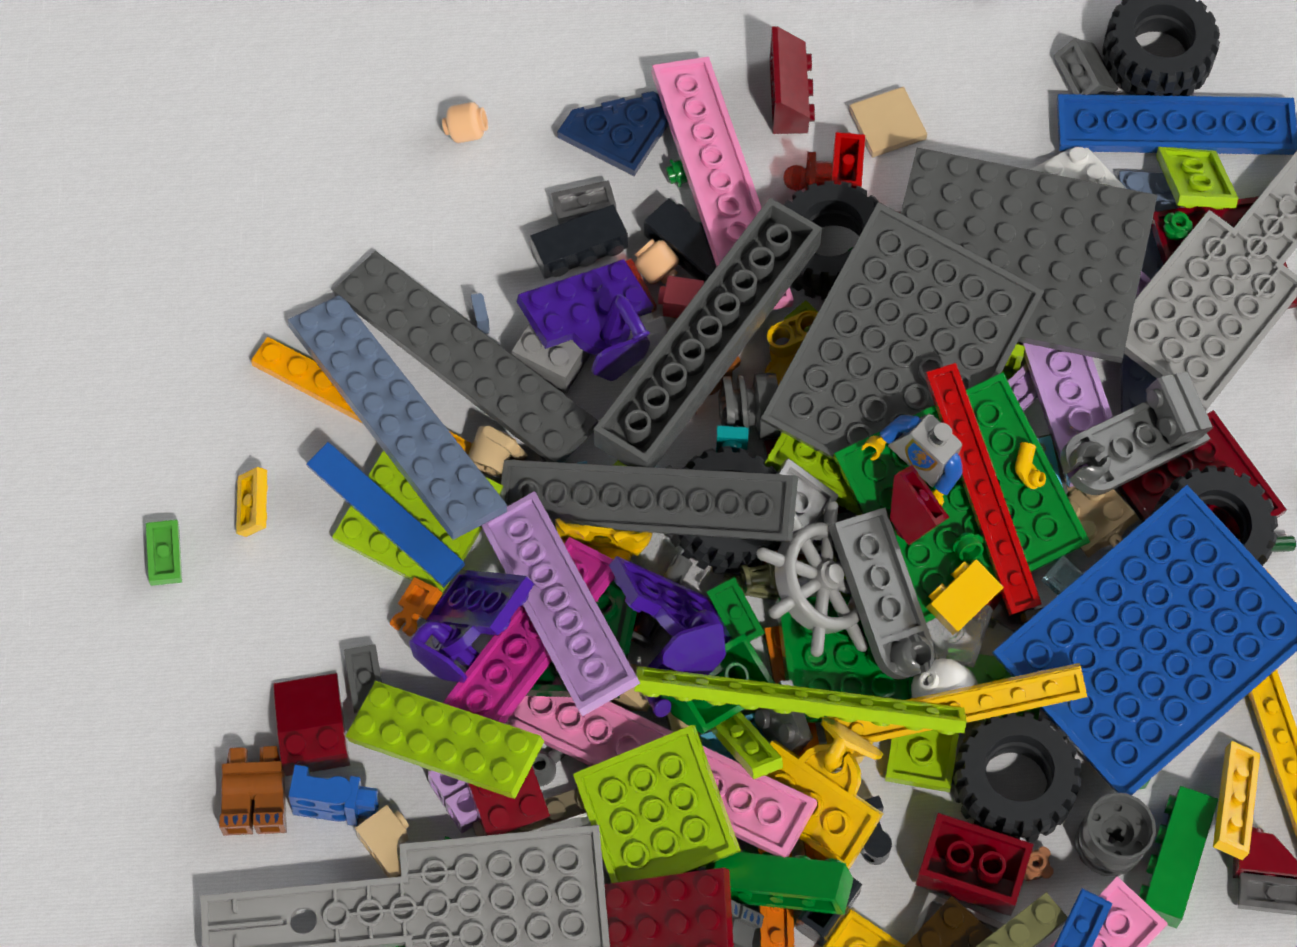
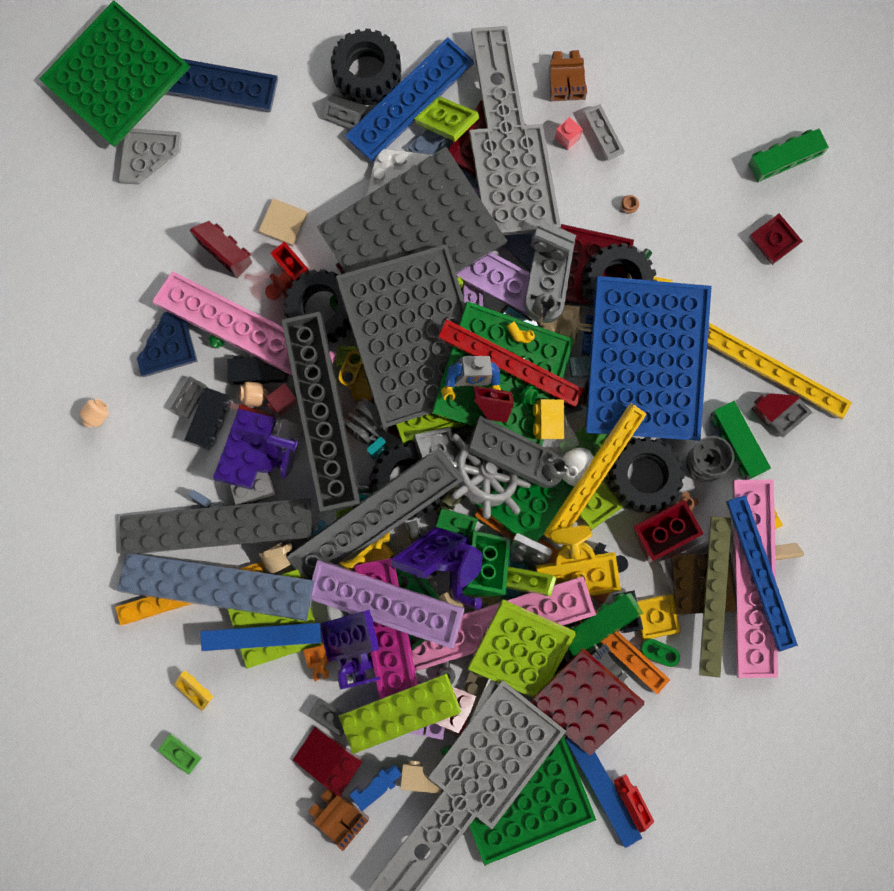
camera: 45 degrees left, 15 degrees up
(811, 701) = (533, 541): lime plate -> none
(1177, 232) = (460, 154): green plate -> none
(1236, 800) = (742, 393): yellow plate -> none

